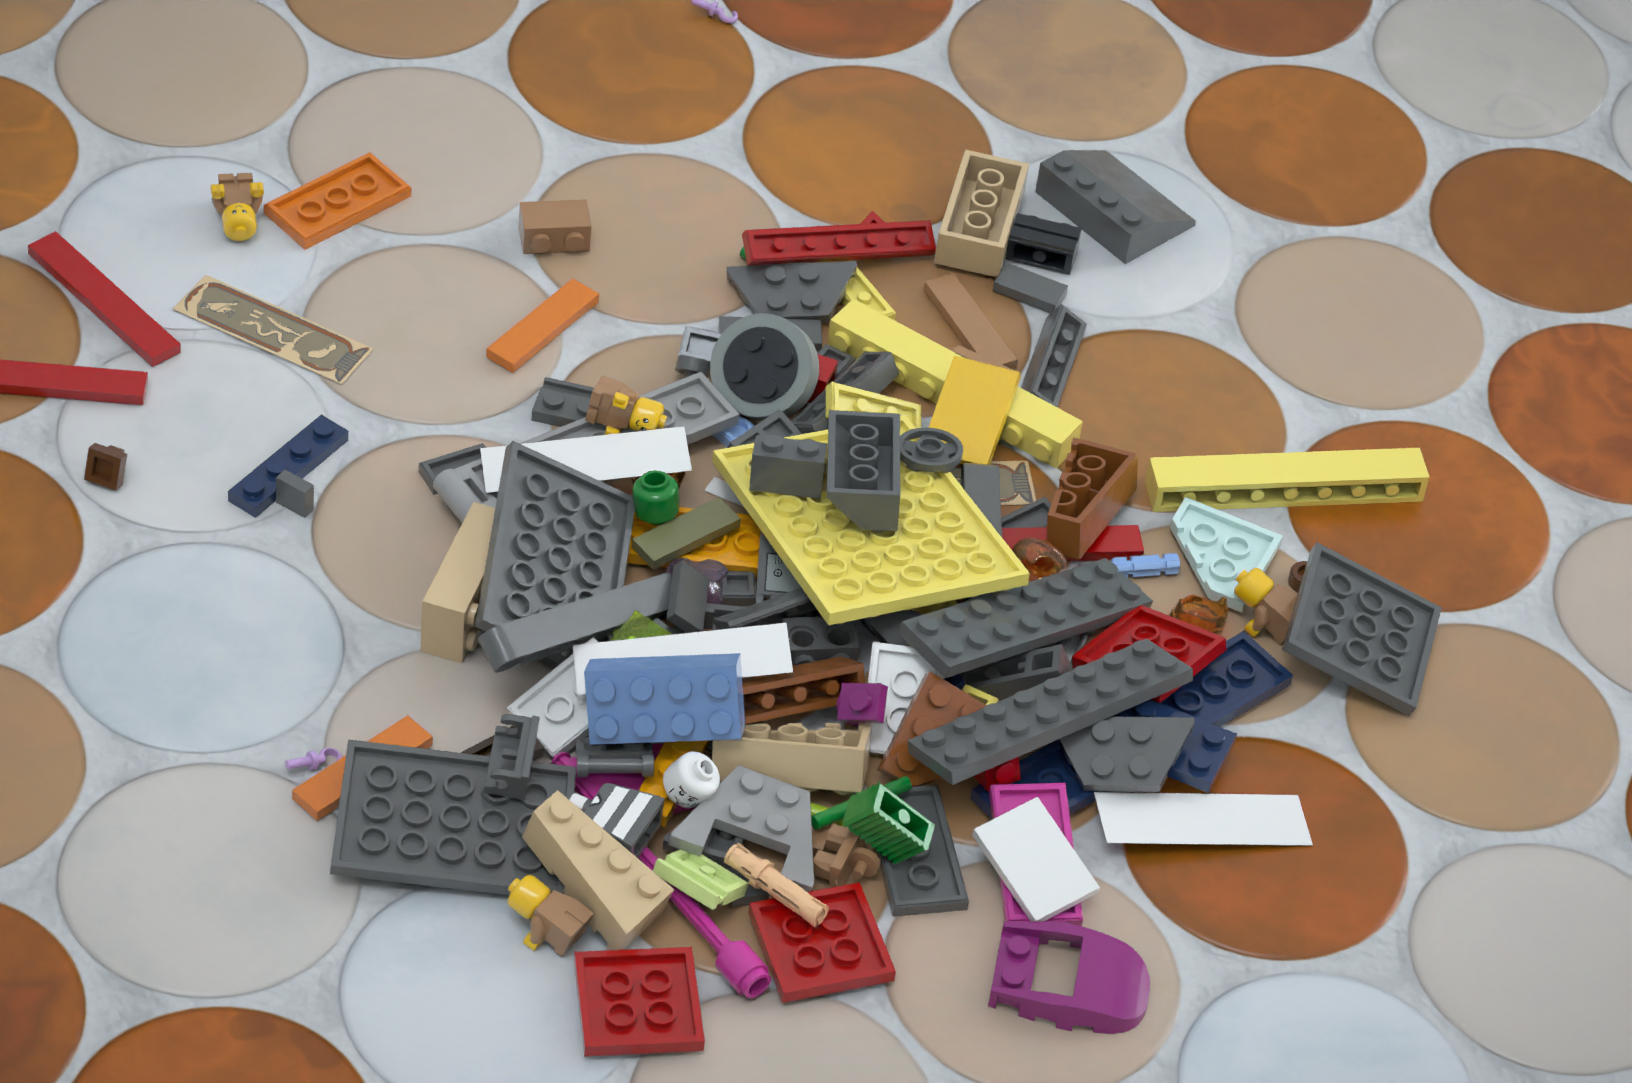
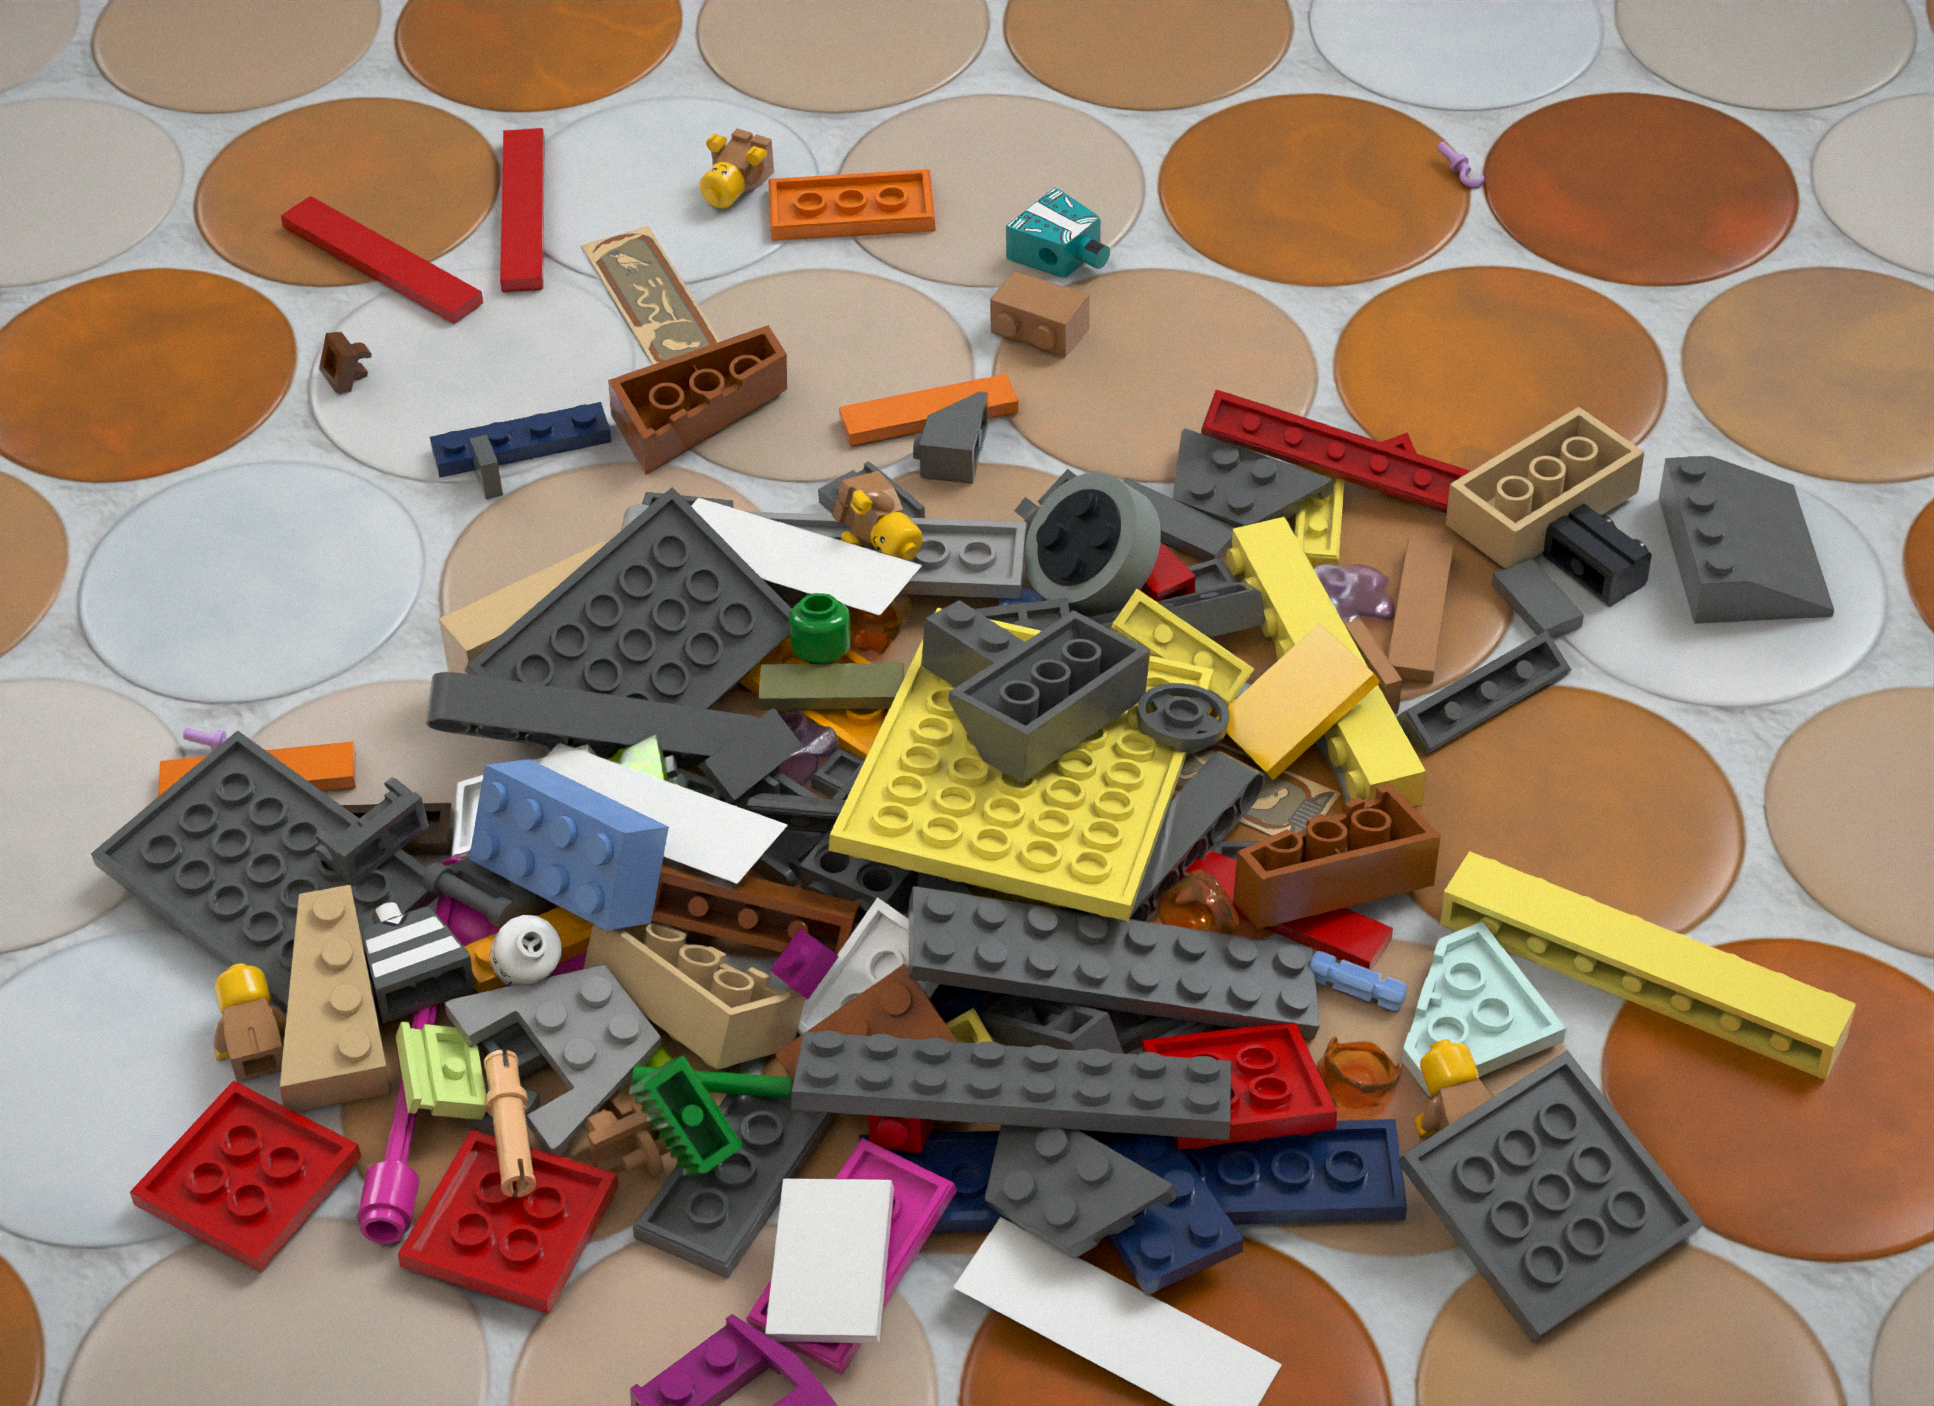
camera: 45 degrees right, 0 degrees up
(388, 383) = (696, 394): none -> dark orange wedge
(512, 166) = (1056, 236): none -> teal torso
(590, 339) = (953, 440): none -> dark grey slope
(925, 324) = (1356, 591): none -> plate

